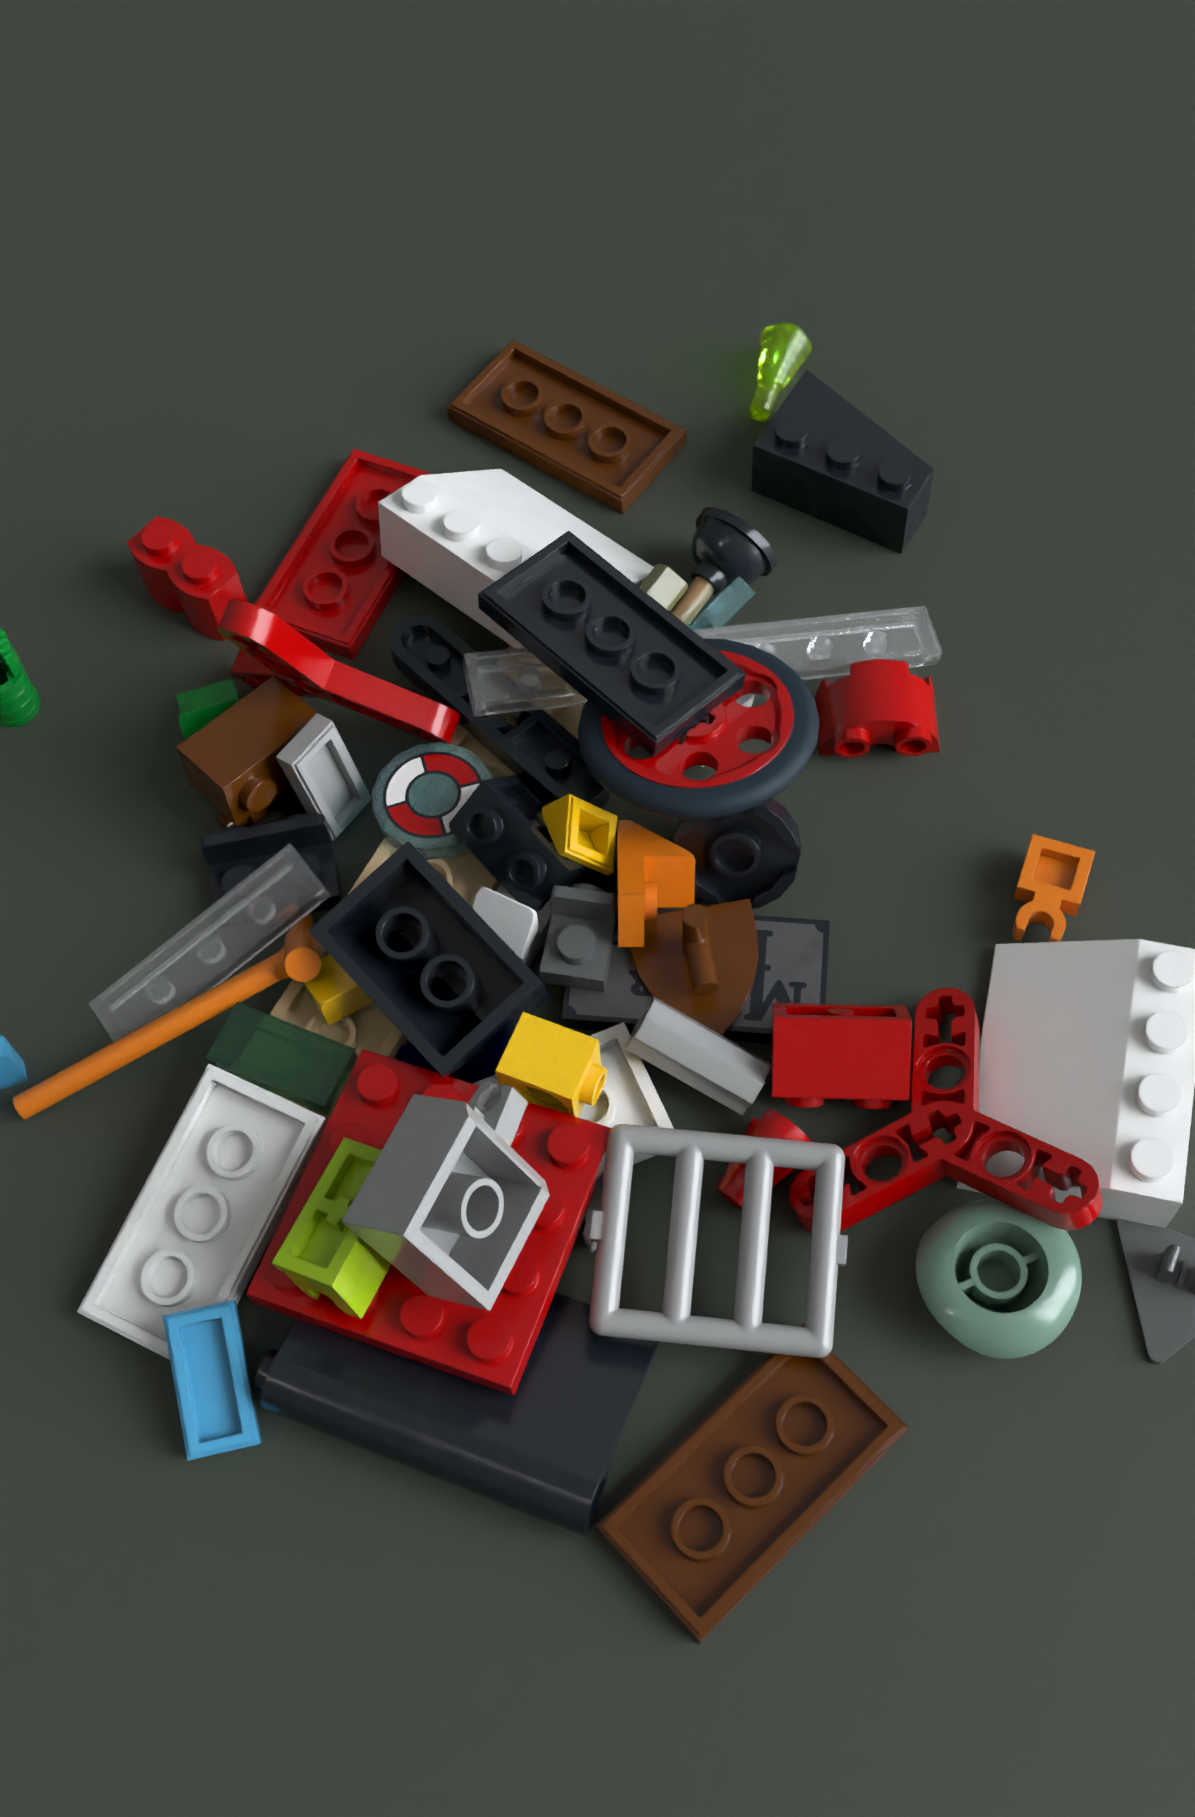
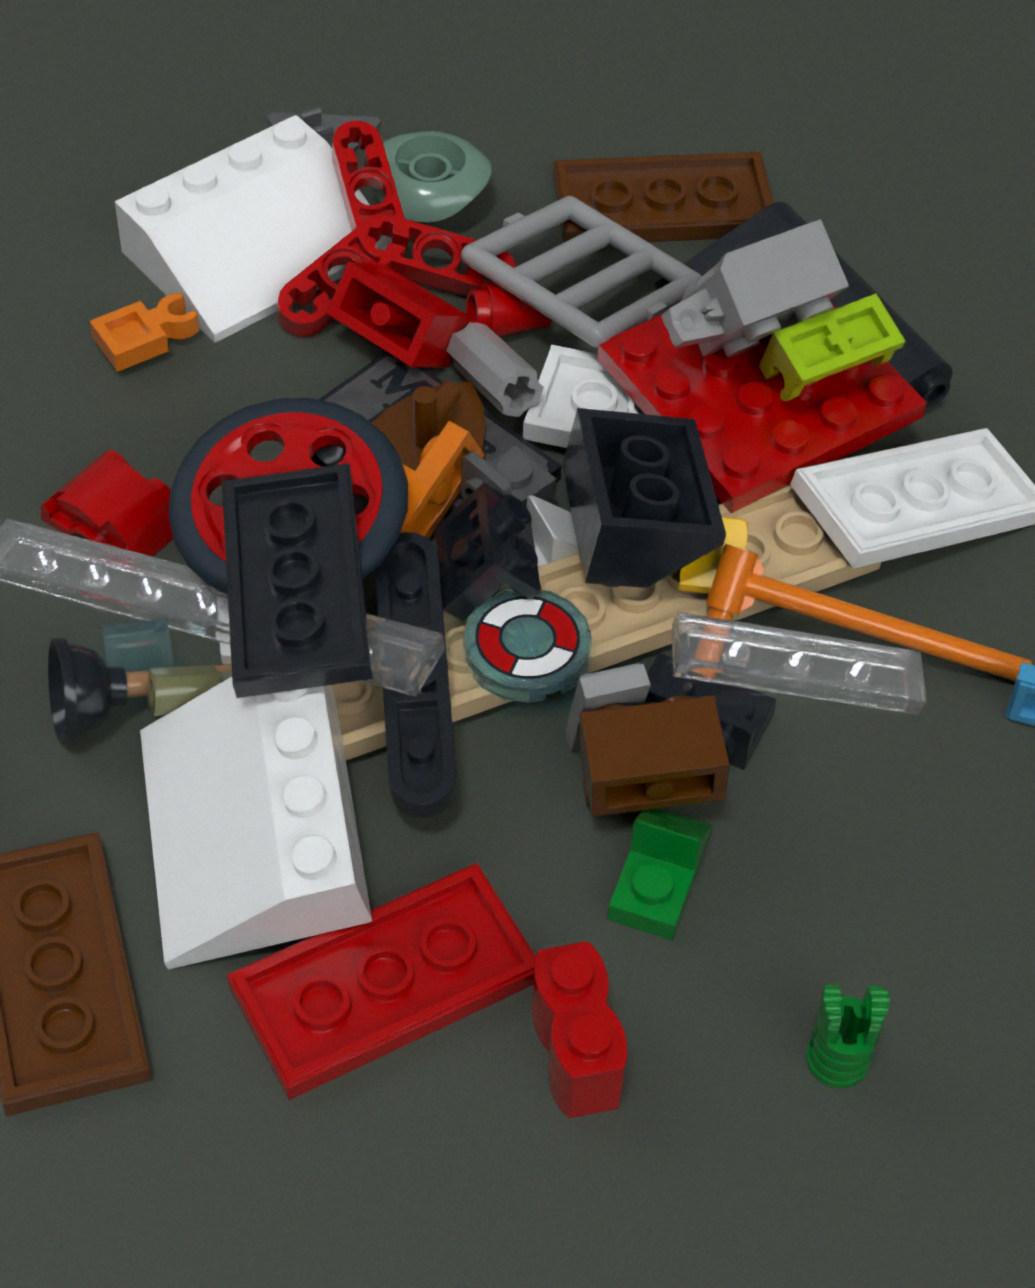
camera: 150 degrees left, 10 degrees down
(211, 1380) = (976, 409): dark azure tile -> none
(278, 650) = (556, 773): red piece -> none
(282, 1058) = (798, 539): clear green tile -> none
(552, 1065) = (608, 383): yellow brick -> none
(582, 832) = (445, 523): yellow slope -> none

